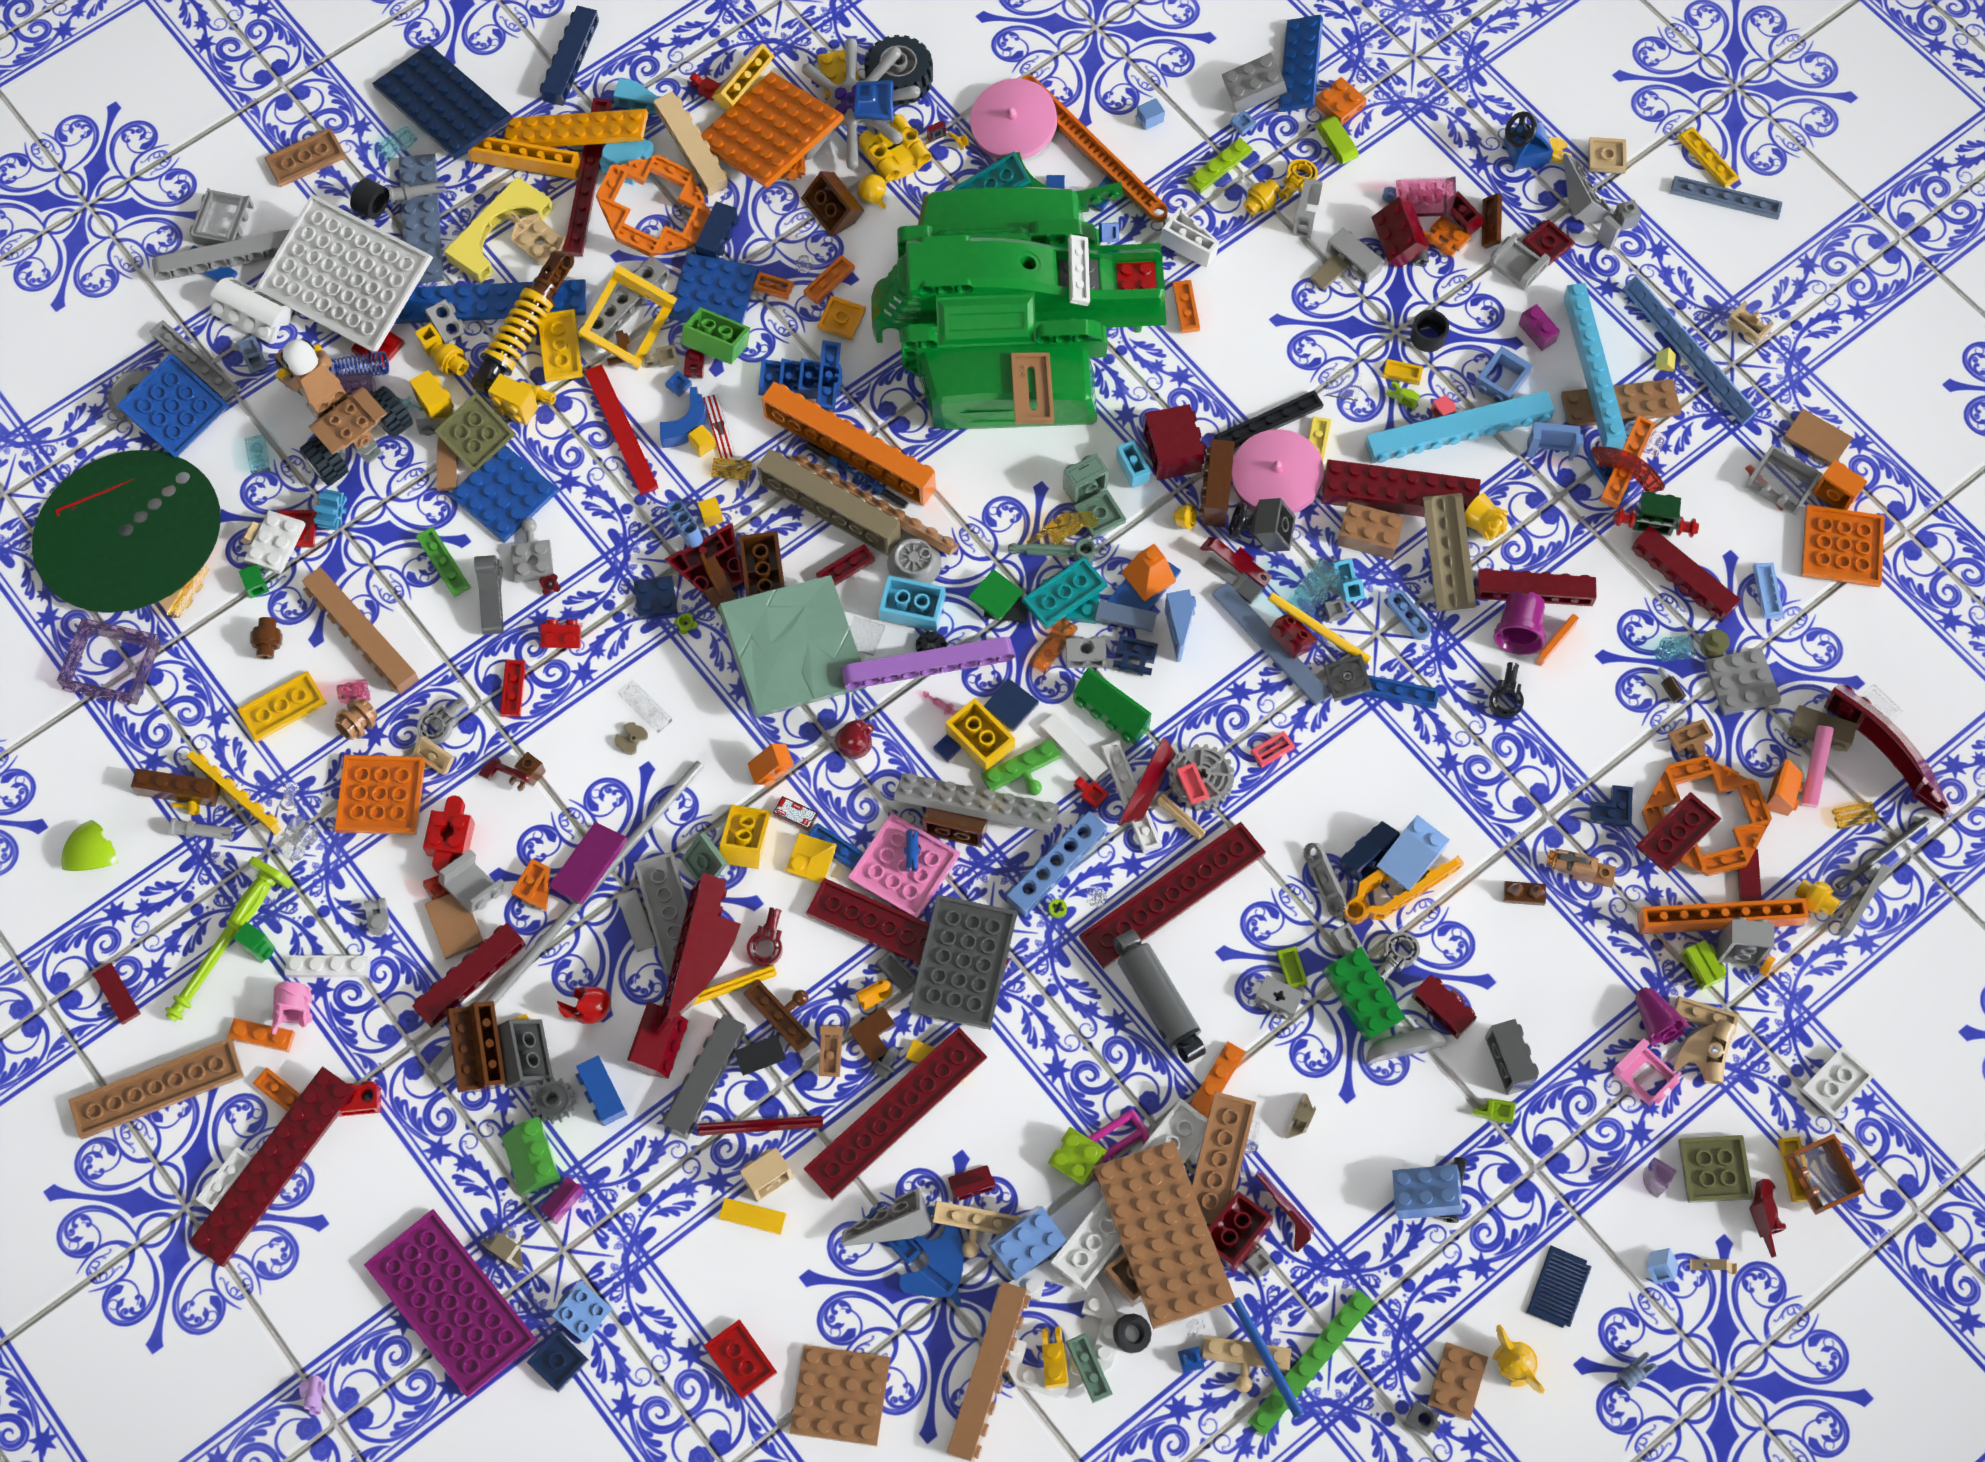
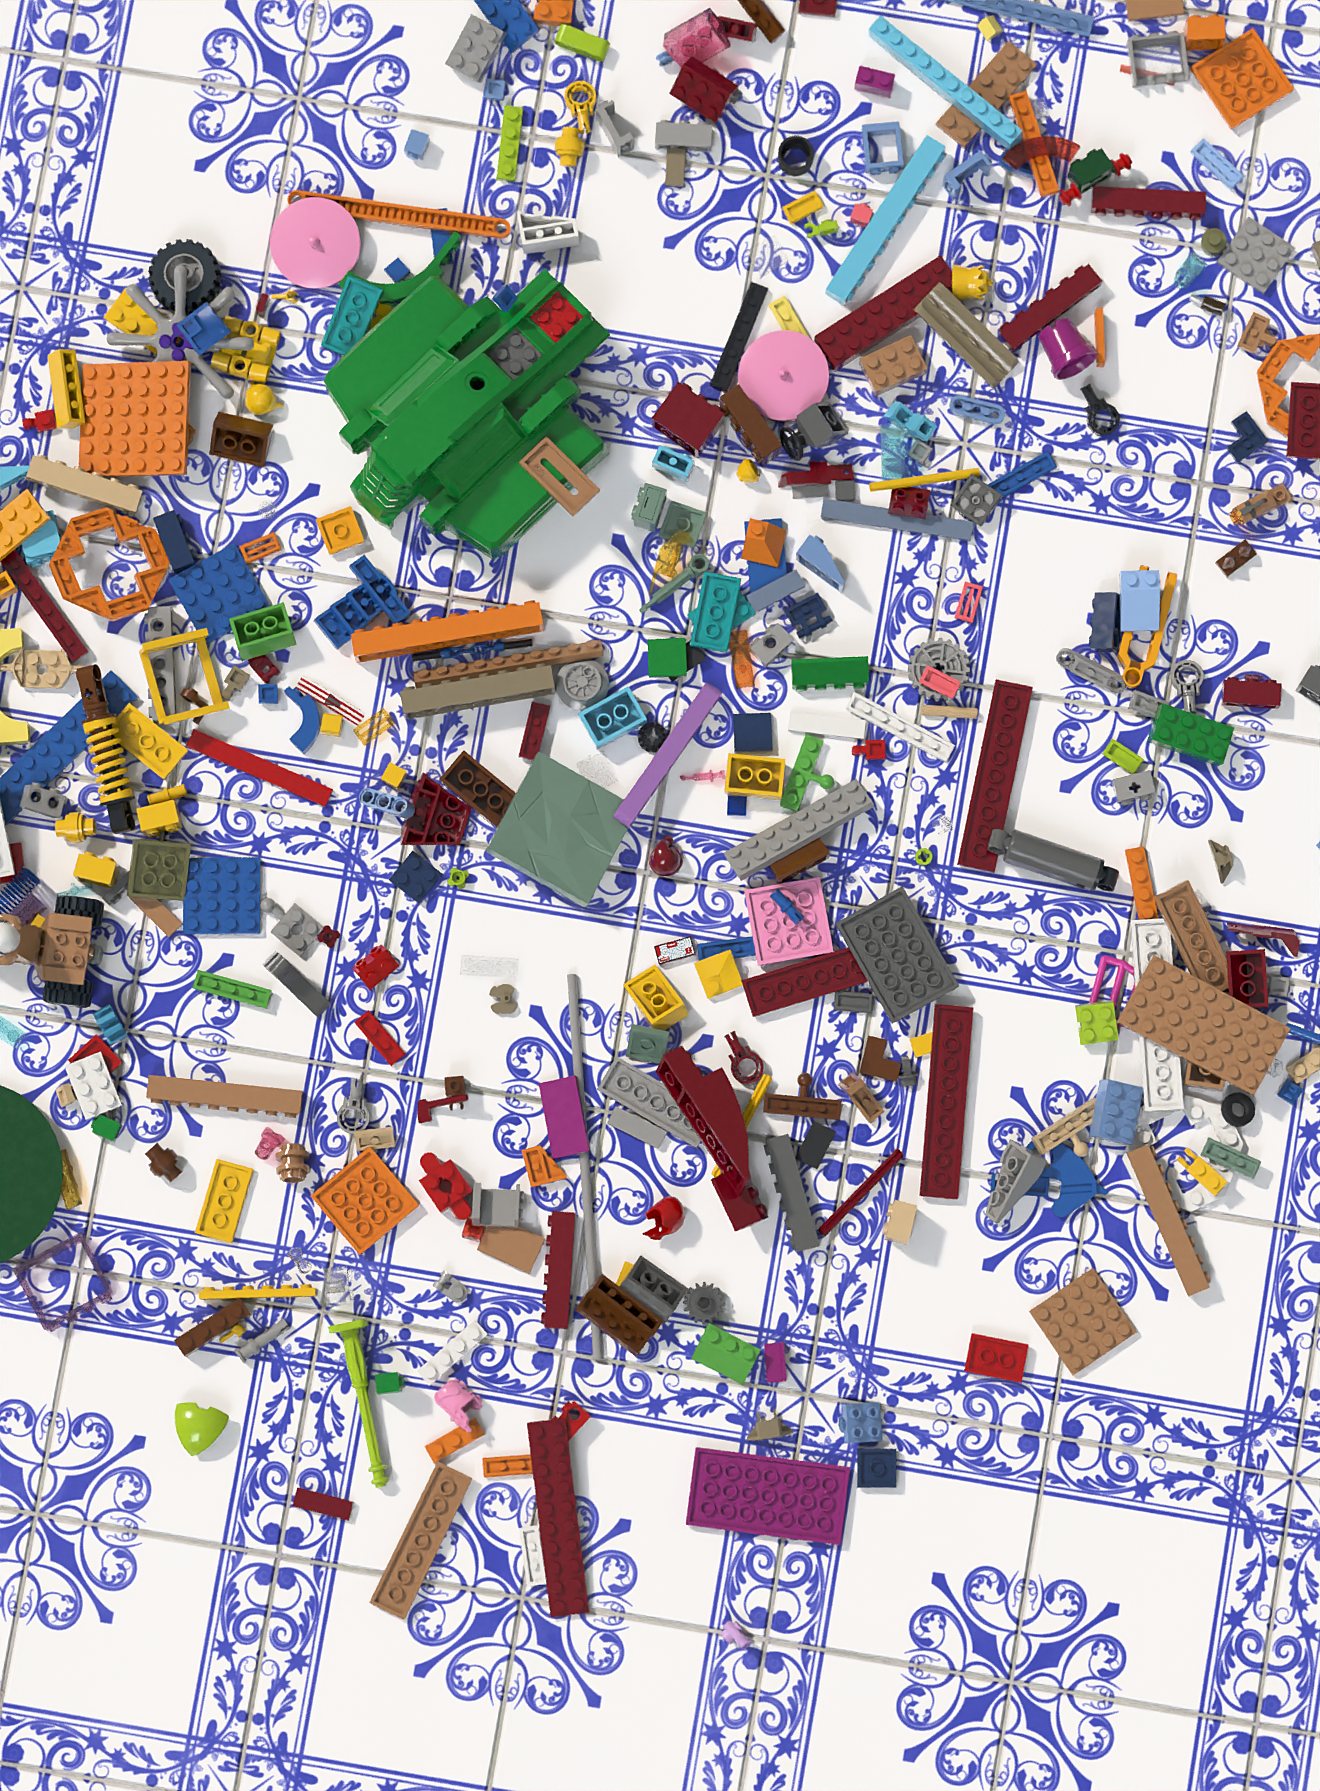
camera: 40 degrees left, 15 degrees up
(428, 337) = (44, 825): yellow brick -> none
(600, 1091) = (730, 1267): blue brick -> none
(721, 589) = (463, 831): reddish brown piece -> none
(752, 1216) = (914, 1257): yellow tile -> none
(770, 764) = (627, 932): orange brick -> none
(829, 279) = (299, 506): orange plate -> none
(874, 993) = (853, 1031): light orange piece -> none
(971, 1183) = (1039, 1103): dark red panel -> none
(1024, 902) = (900, 776): medium blue brick -> none
(1078, 270) = (515, 353): white tile -> none
(1148, 784) = (906, 709): dark red wedge -> none
(1186, 306) = (593, 292): orange plate -> none
(1404, 1045) = (1246, 744): light grey brick -> none
(1449, 233) = (738, 53): orange plate -> none
(1518, 262) = (811, 35): light grey panel -> none

